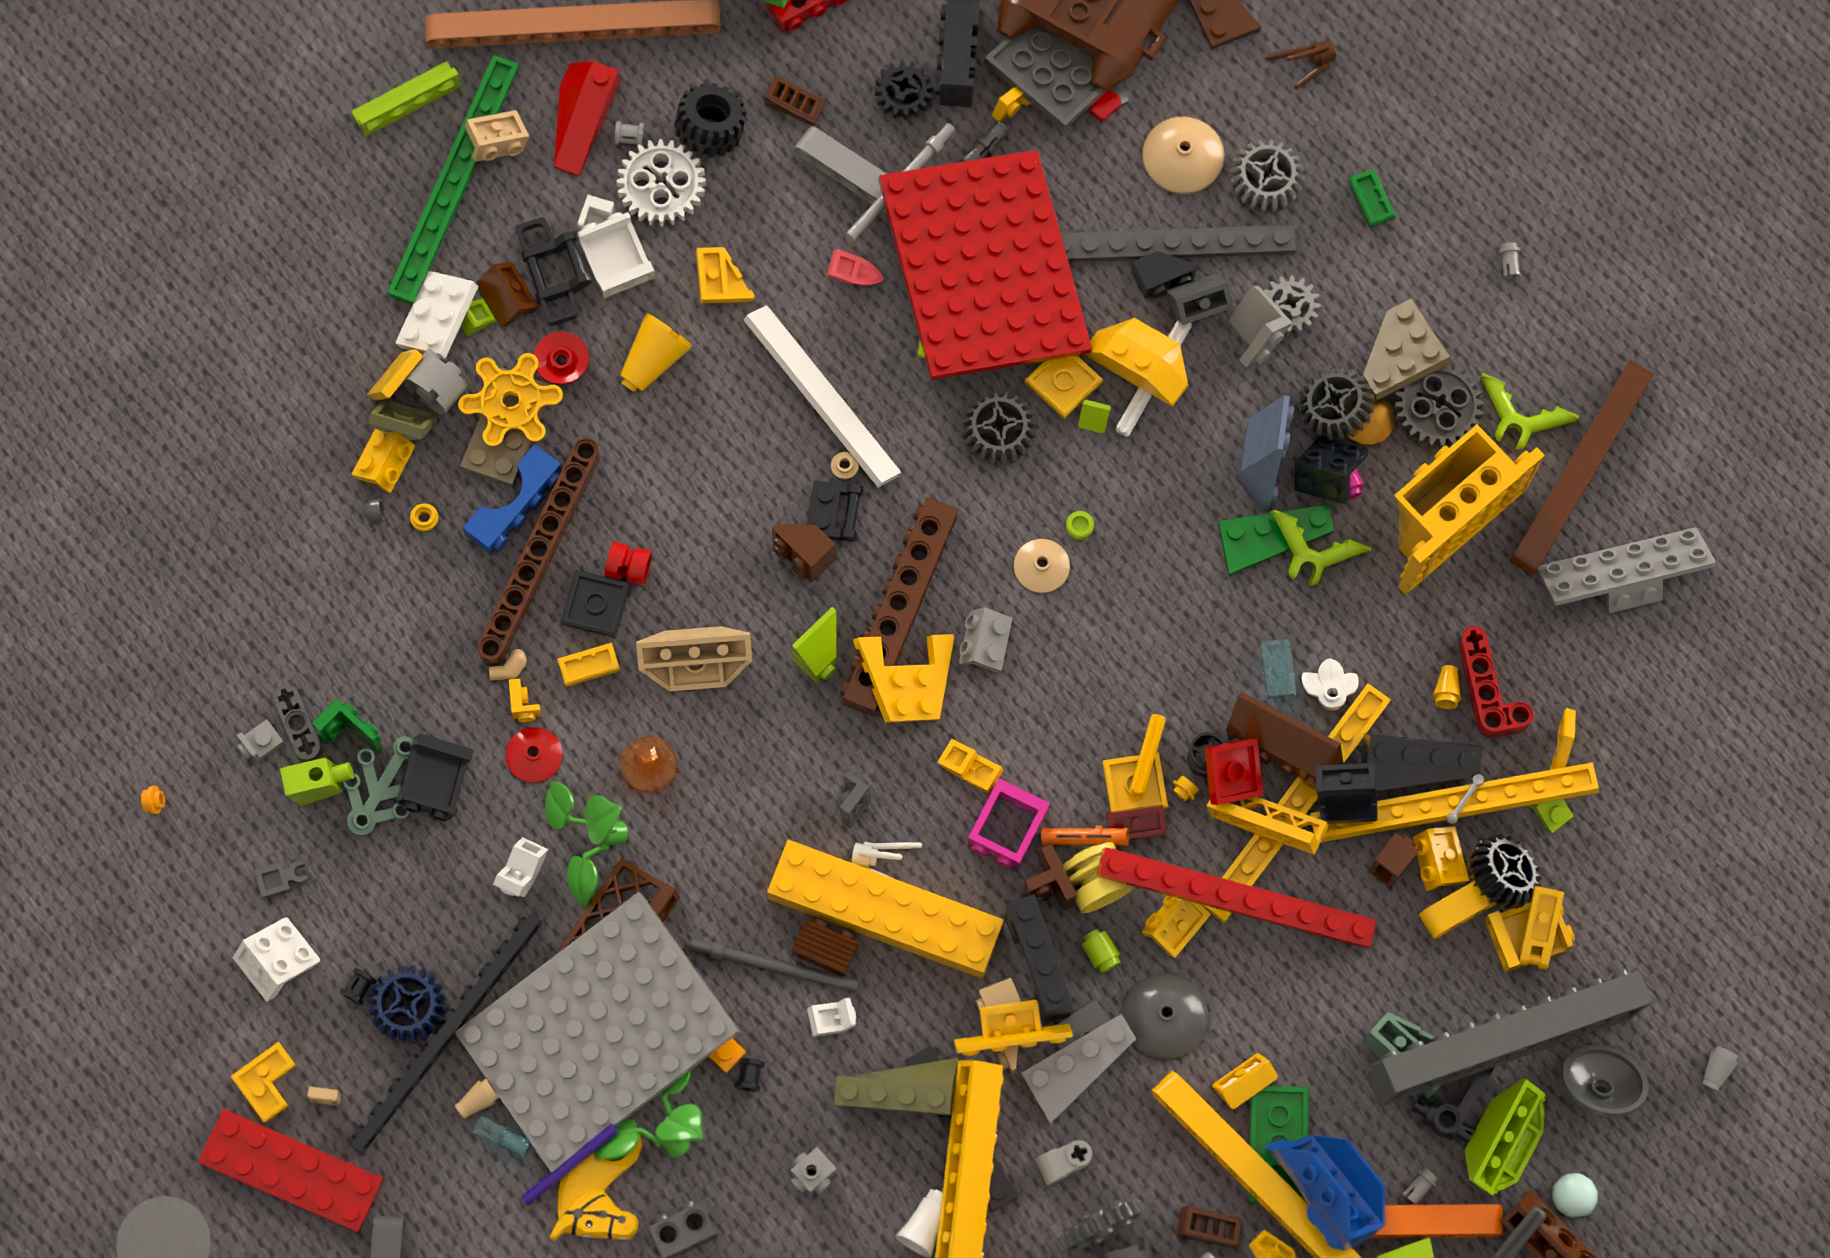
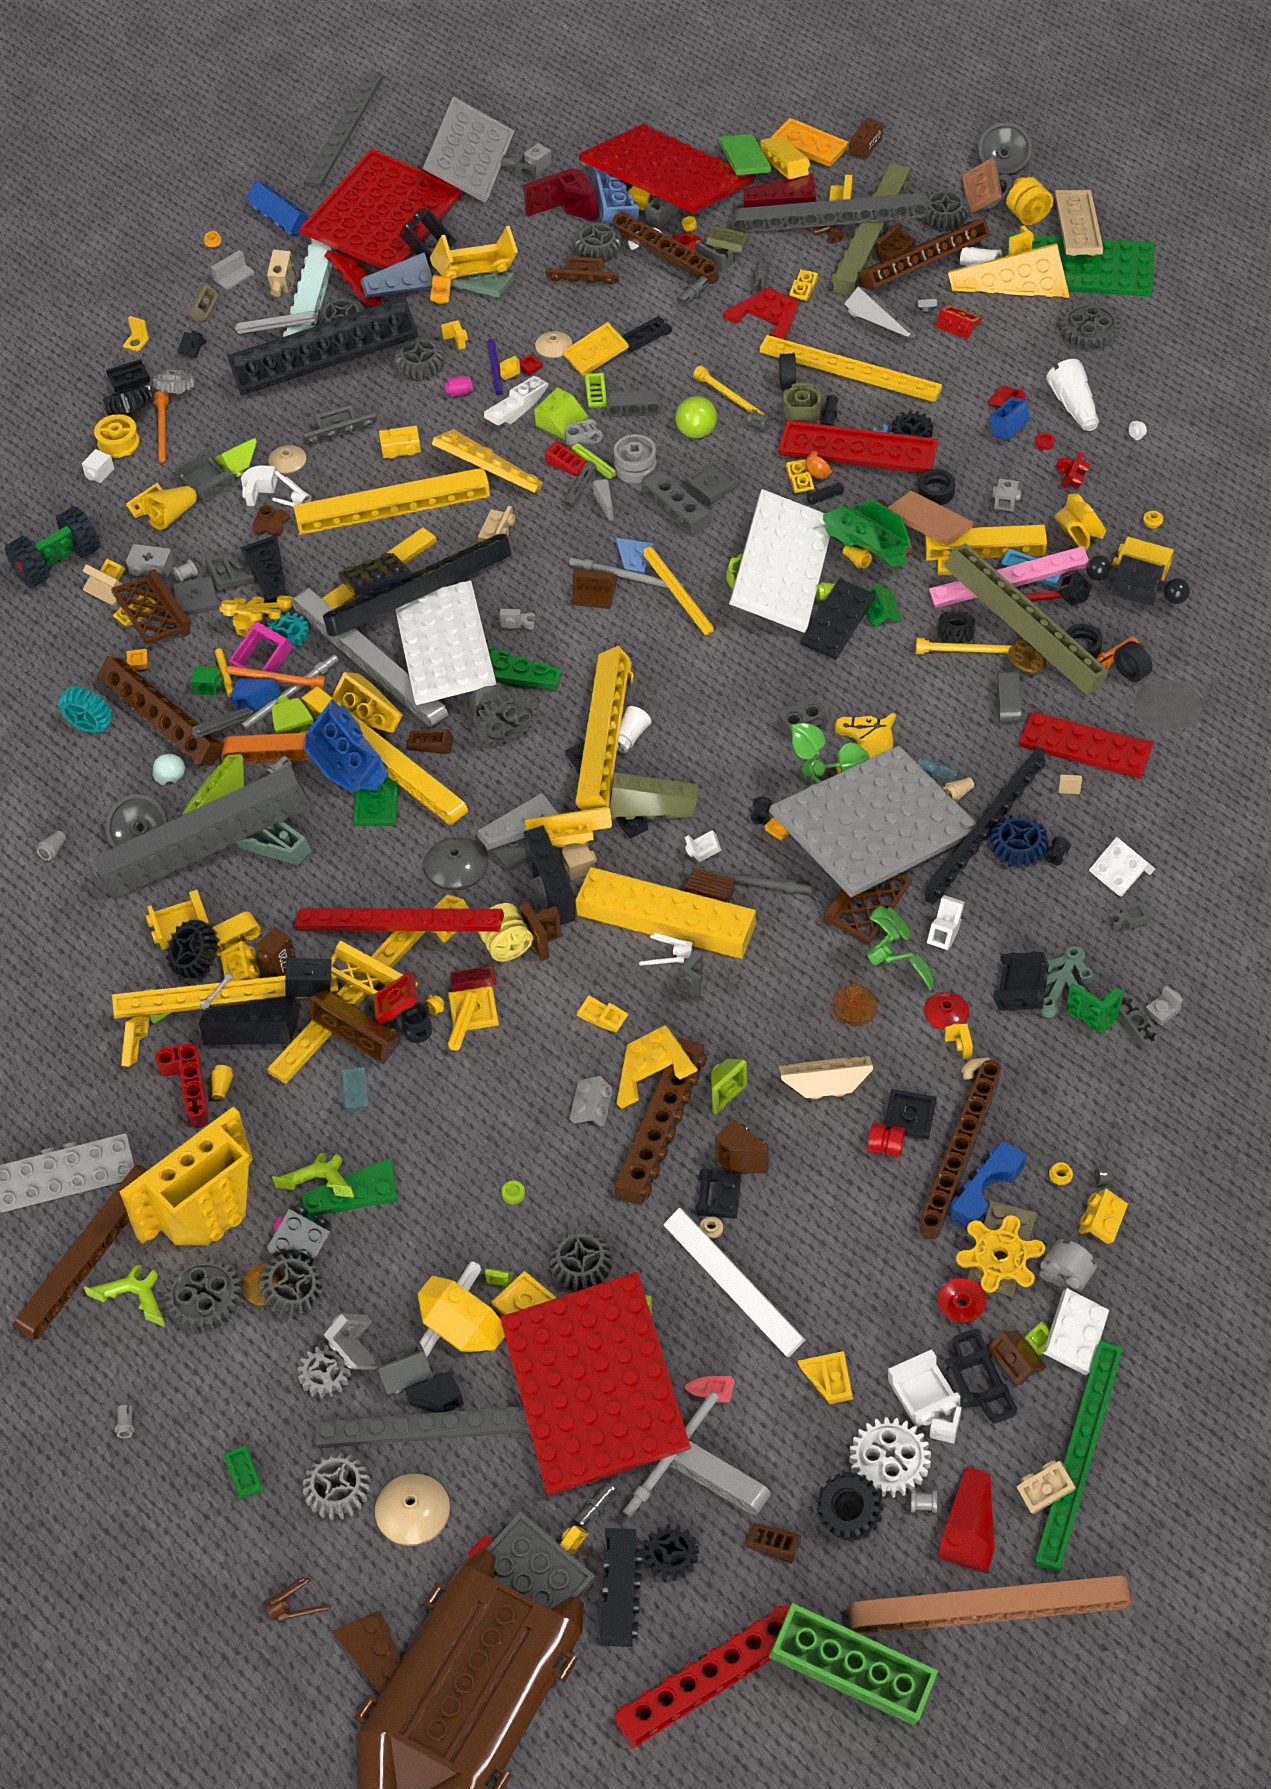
camera: 175 degrees left, 20 degrees down
(152, 800) = (1239, 962): light orange plate -> none
(257, 1078) = (1119, 796): yellow tile -> none
(314, 780) = (1115, 968): lime torso -> none
(395, 375) = (1103, 1271): yellow tile -> none
(402, 418) = (1094, 1234): olive plate -> none
(406, 98) = (1136, 1527): lime fence -> none
(577, 1158) = (902, 742): dark purple bar -> none
(588, 665) = (910, 1070): yellow plate -> none
(652, 353) = (879, 1306): yellow cone -> none
(813, 1161) = (711, 753): light grey brick -> none
(1020, 799) = (565, 990): dark pink window -> none
(1041, 578) = (547, 1170): tan dish -> none
(1051, 836) = (513, 965): orange pin -> none
(1059, 1164) = (533, 769): light grey piece -> none
(1101, 950) = (501, 893): lime brick -> none
(1245, 1081) = (399, 823): yellow slope -> none
(1264, 448) = (352, 1241): sand blue wedge -> none
(1330, 680) = (314, 1085): white plate -> none
(1403, 351) = (228, 1333): dark tan plate -> none
(1541, 926) = (169, 914): yellow plate -> none

